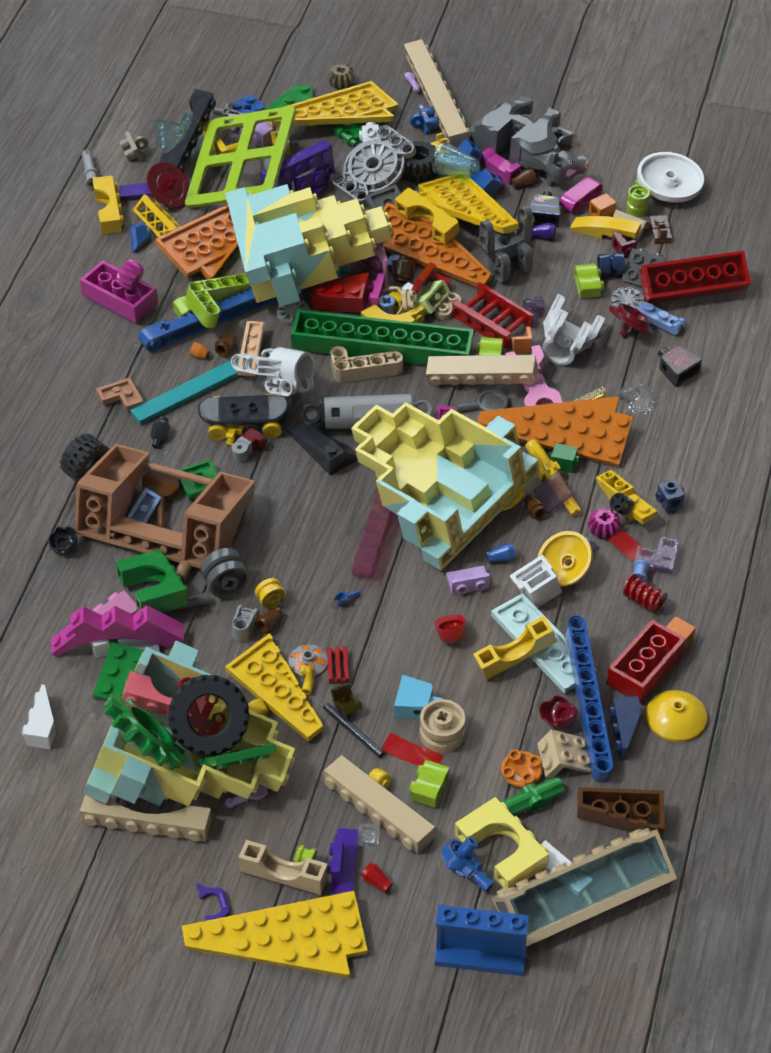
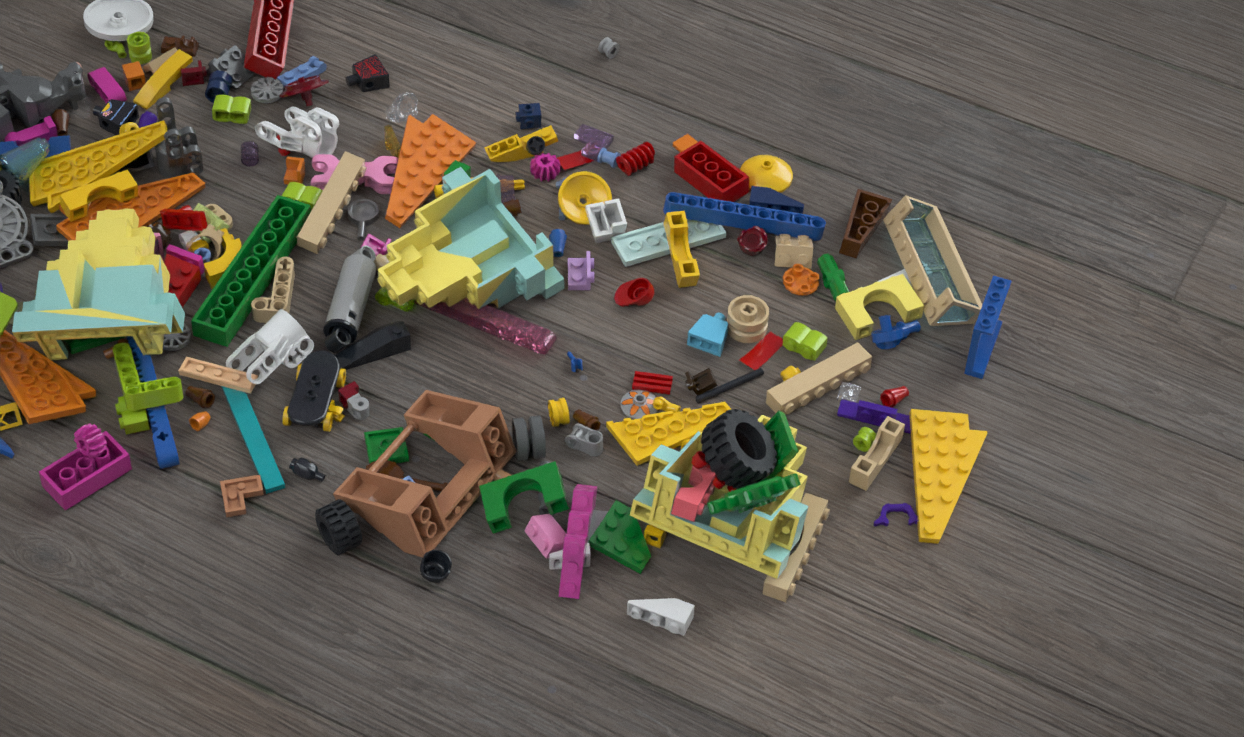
camera: 80 degrees left, 0 degrees up
(490, 328) = (254, 197): red fence -> none

